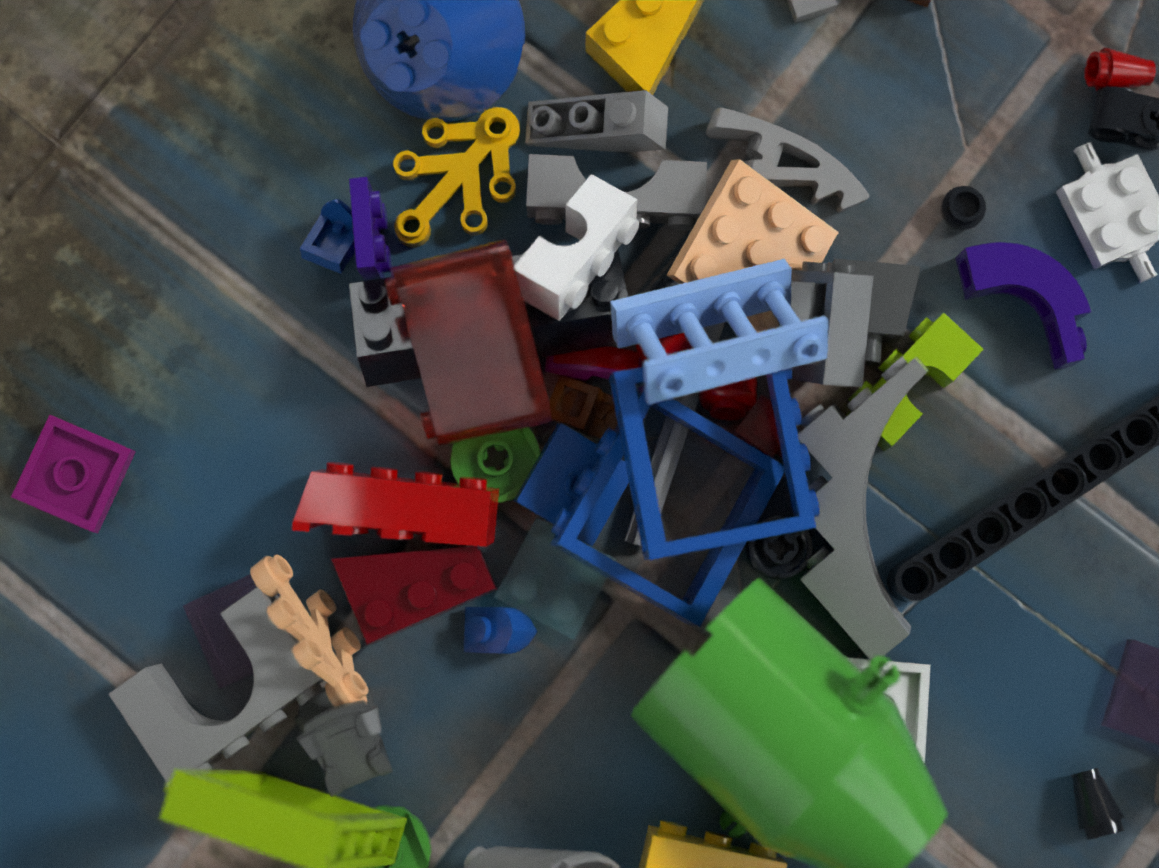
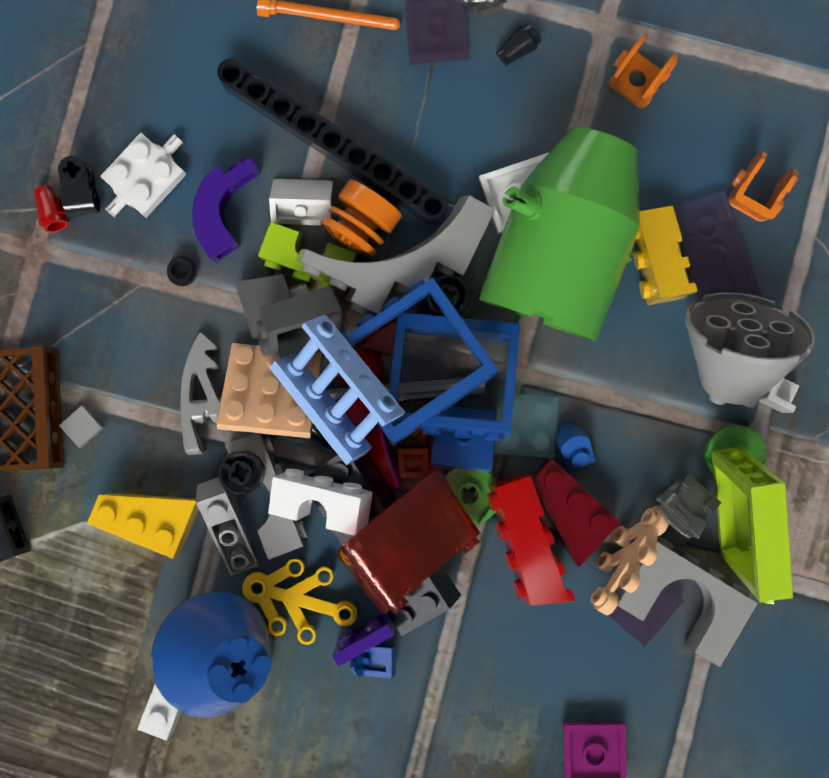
camera: 110 degrees left, 5 degrees up
(660, 165) = (241, 472): none -> black wheel
(936, 472) = (363, 216): none -> orange wheel
(993, 405) = (300, 201): none -> white panel

